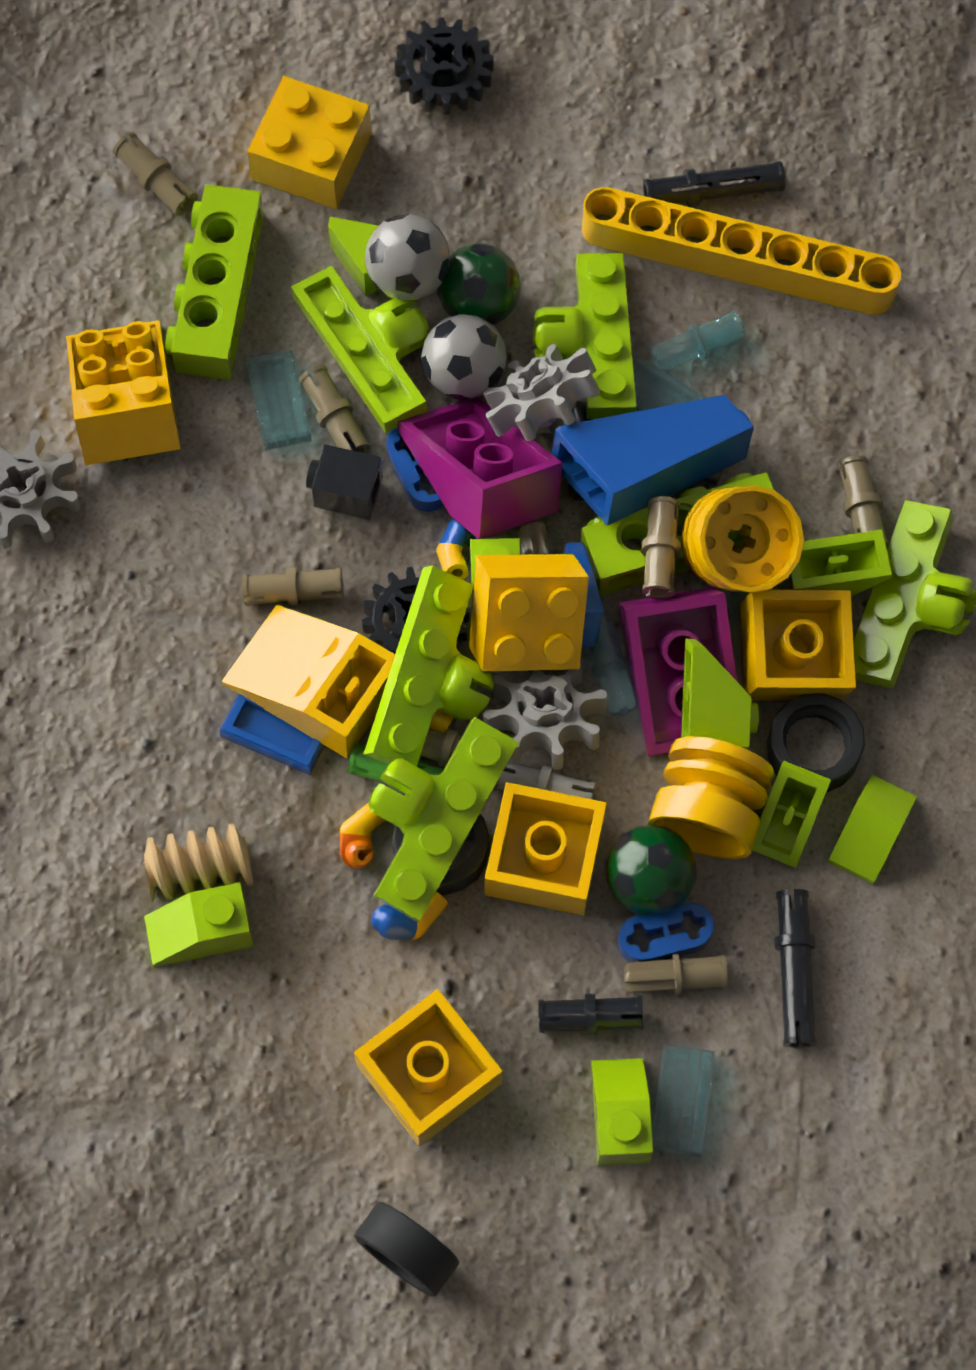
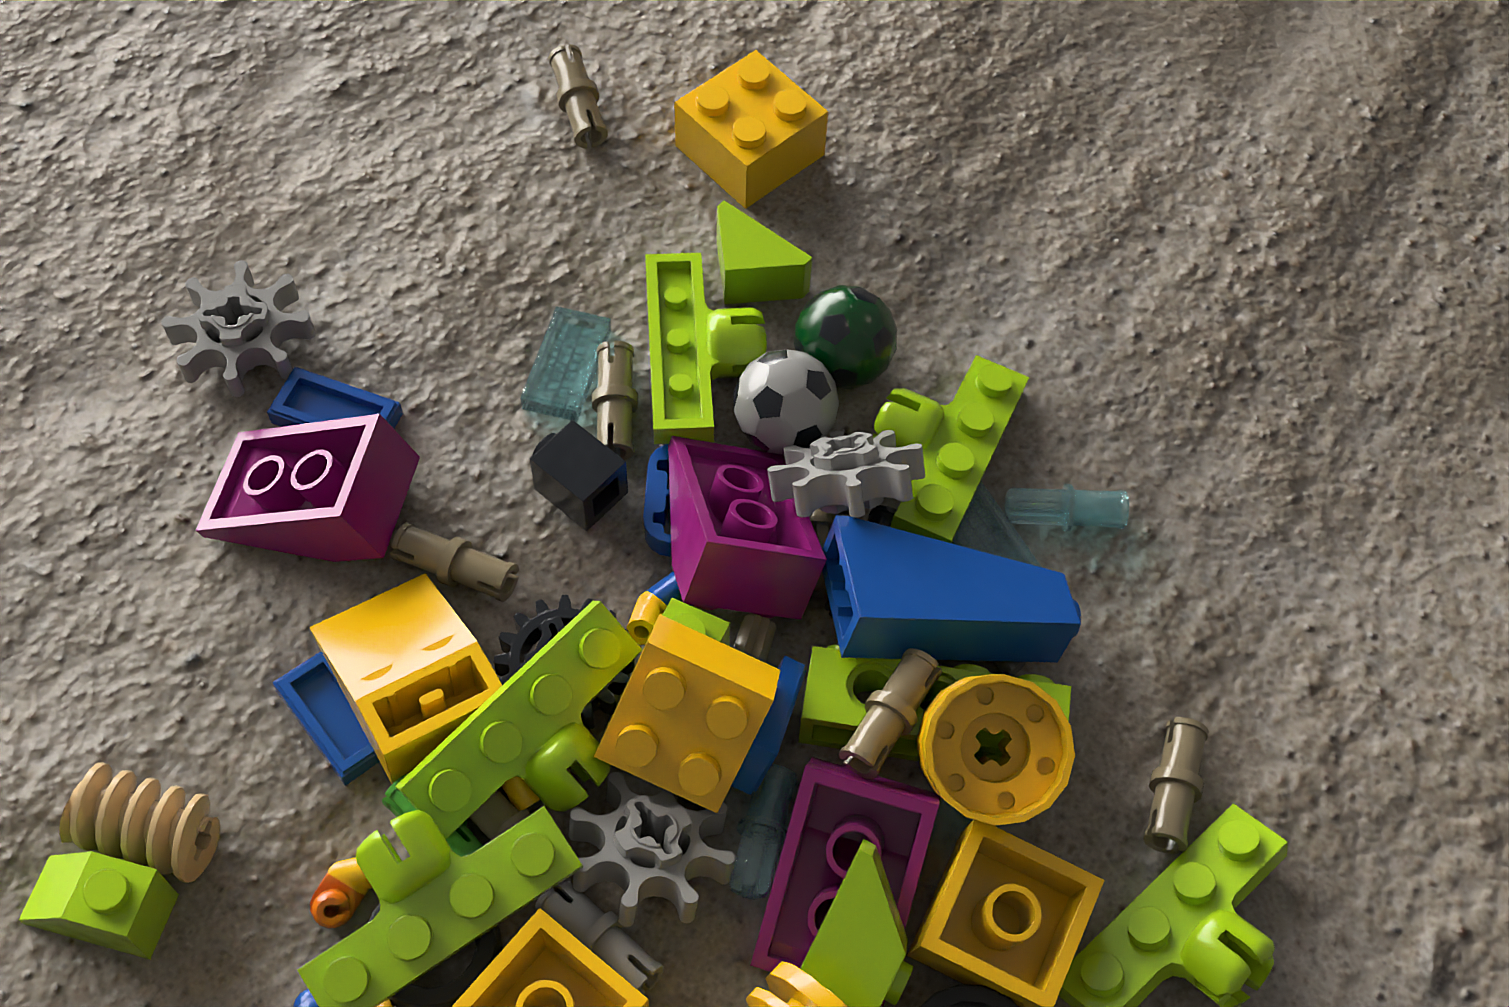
camera: 25 degrees right, 10 degrees down
(122, 392) = (403, 284): yellow slope -> none
(131, 519) = (316, 398): none -> blue tile
(157, 583) = (313, 489): none -> magenta slope
(214, 348) = (571, 220): lime brick -> none
(407, 257) = (774, 264): light grey piece -> none
(444, 65) = (934, 117): black gear -> none
(754, 268) = (1045, 341): yellow beam -> none
(767, 176) = (1171, 352): black pin -> none
(843, 563) = (1111, 841): lime slope -> none

